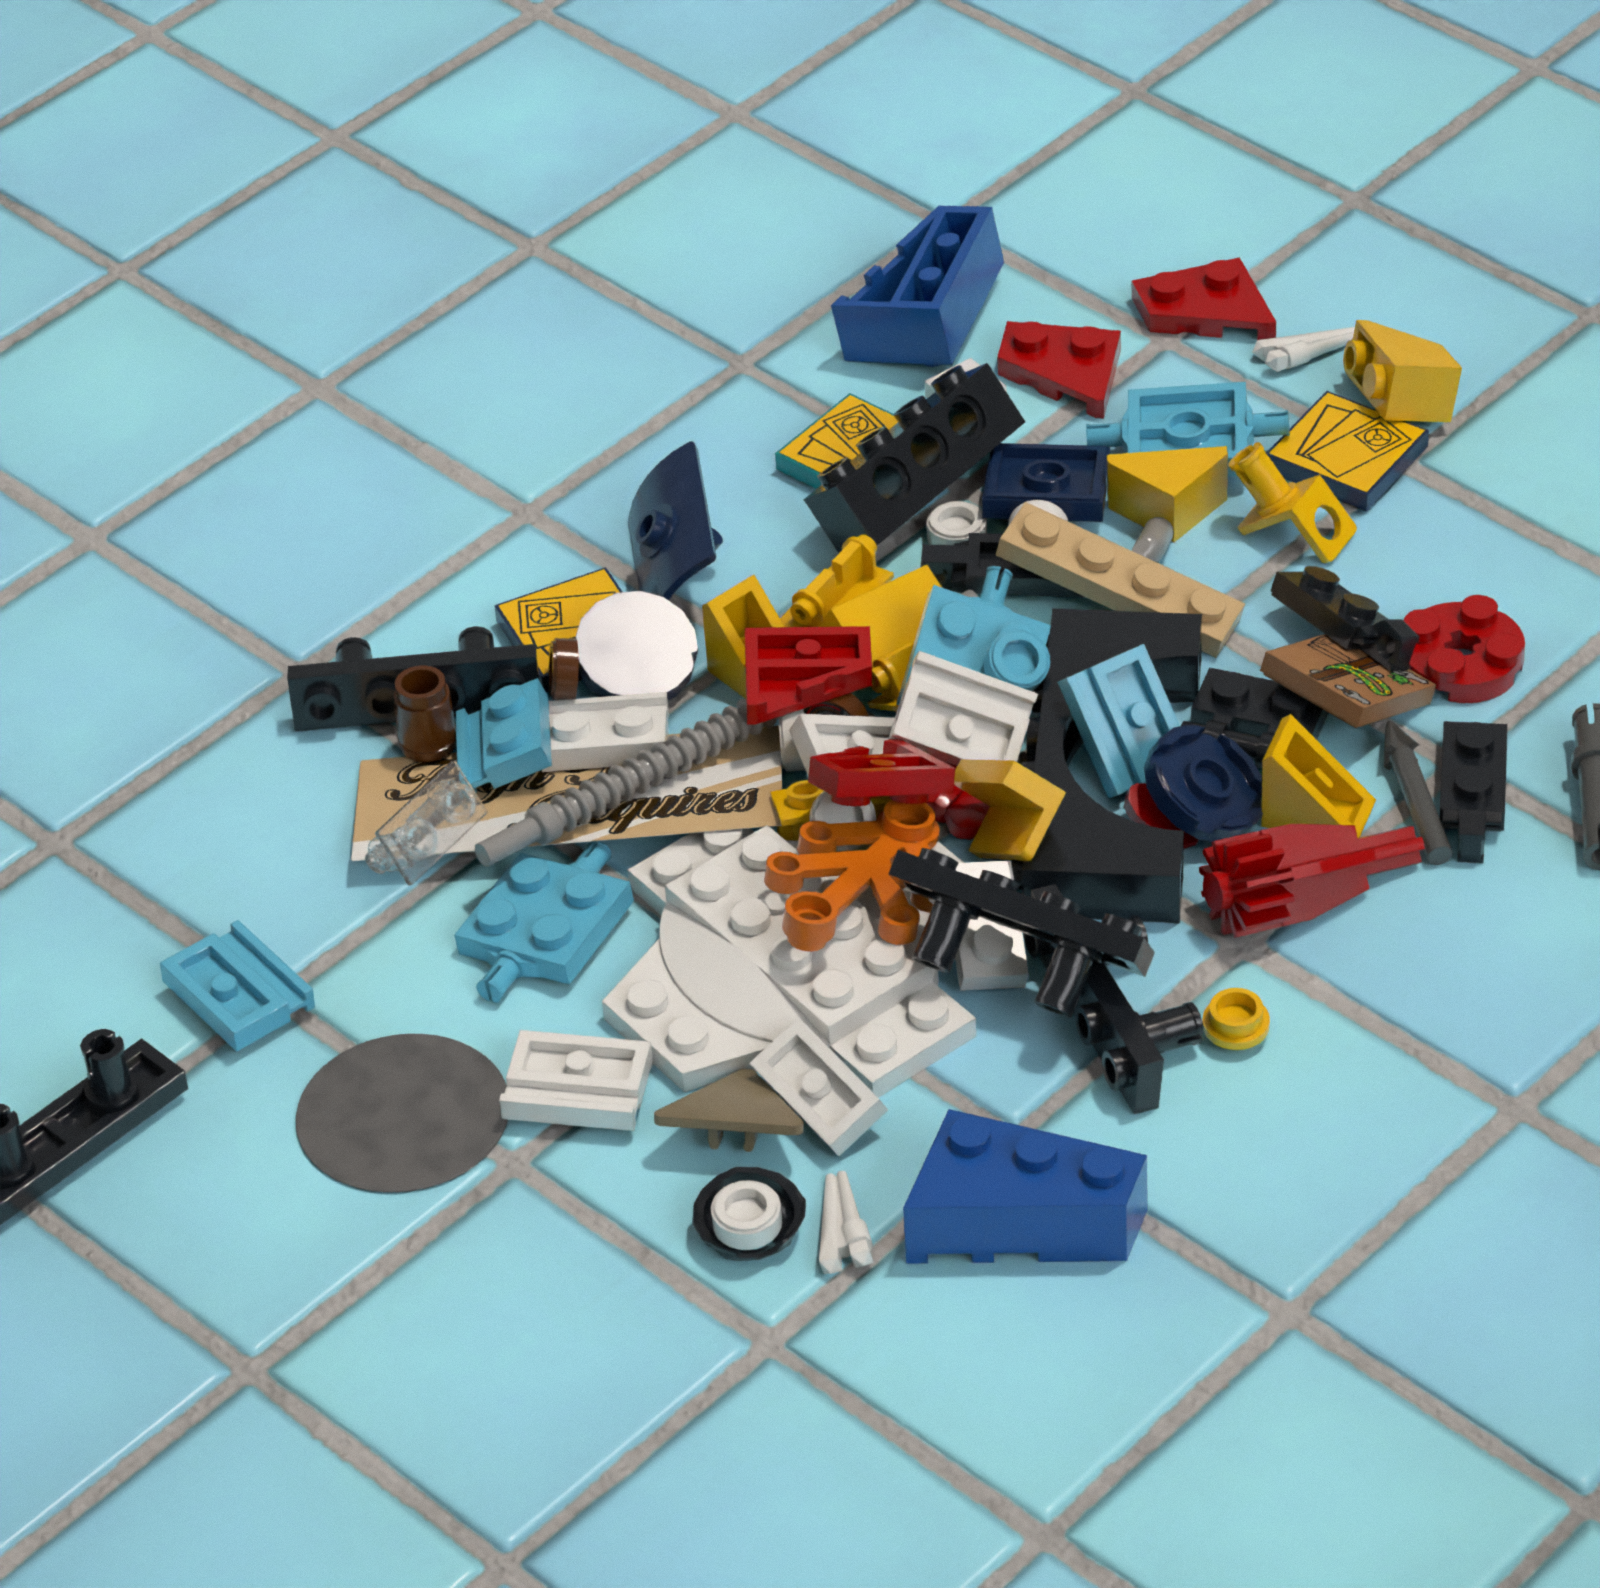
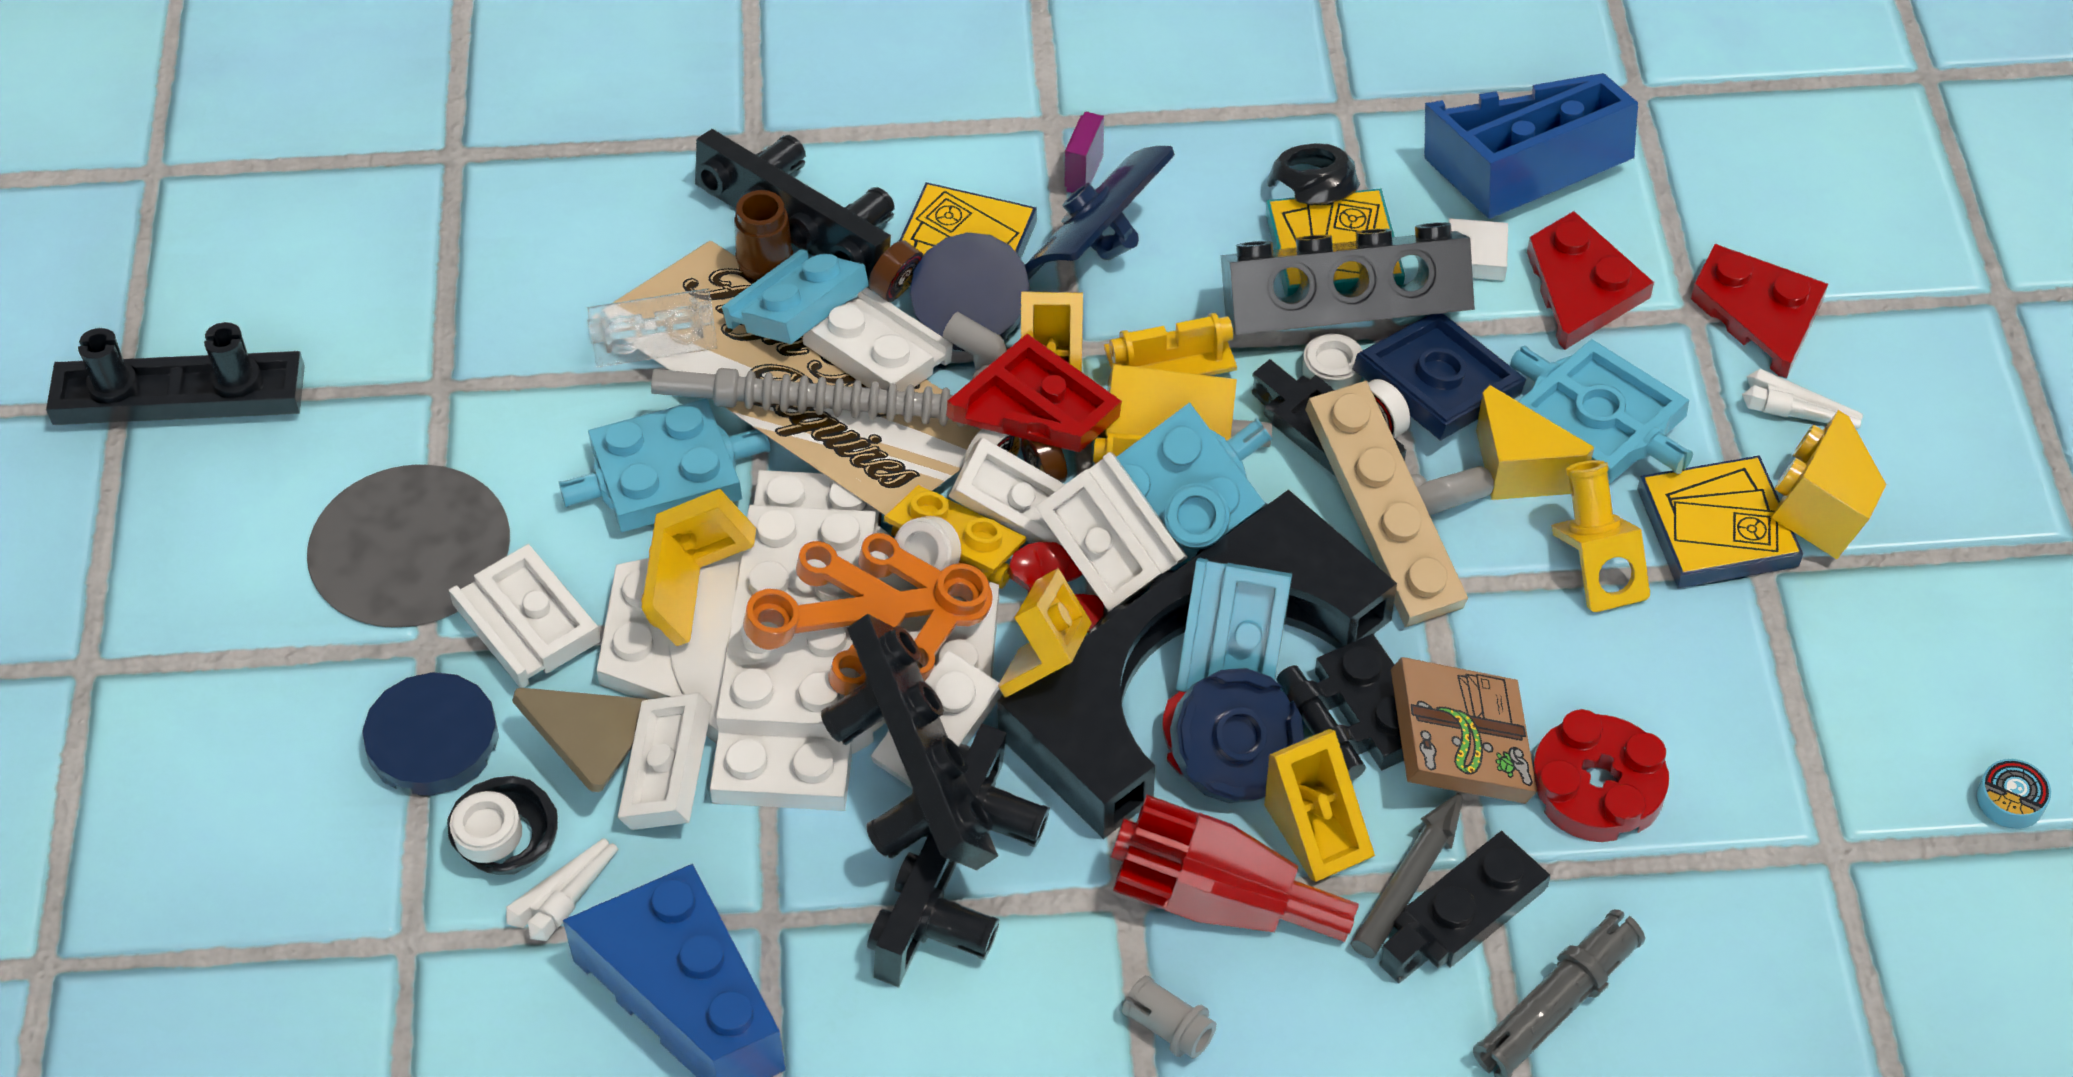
camera: 40 degrees right, 10 degrees up
(237, 985) = (412, 357): medium azure plate -> none
(597, 507) = (1084, 151): none -> magenta tile
(604, 1205) = (430, 733): none -> dark blue tile
(662, 923) = (682, 544): none -> yellow bracket
(700, 678) = (975, 339): none -> light grey arm
(804, 409) = (1325, 185): none -> black piece
(900, 773) = (965, 534): red wing -> none
(1236, 1019) = (1029, 963): yellow plate -> none
(1346, 616) = (1527, 671): black hinge -> none
(1375, 978) = (1170, 1018): none -> light grey pin

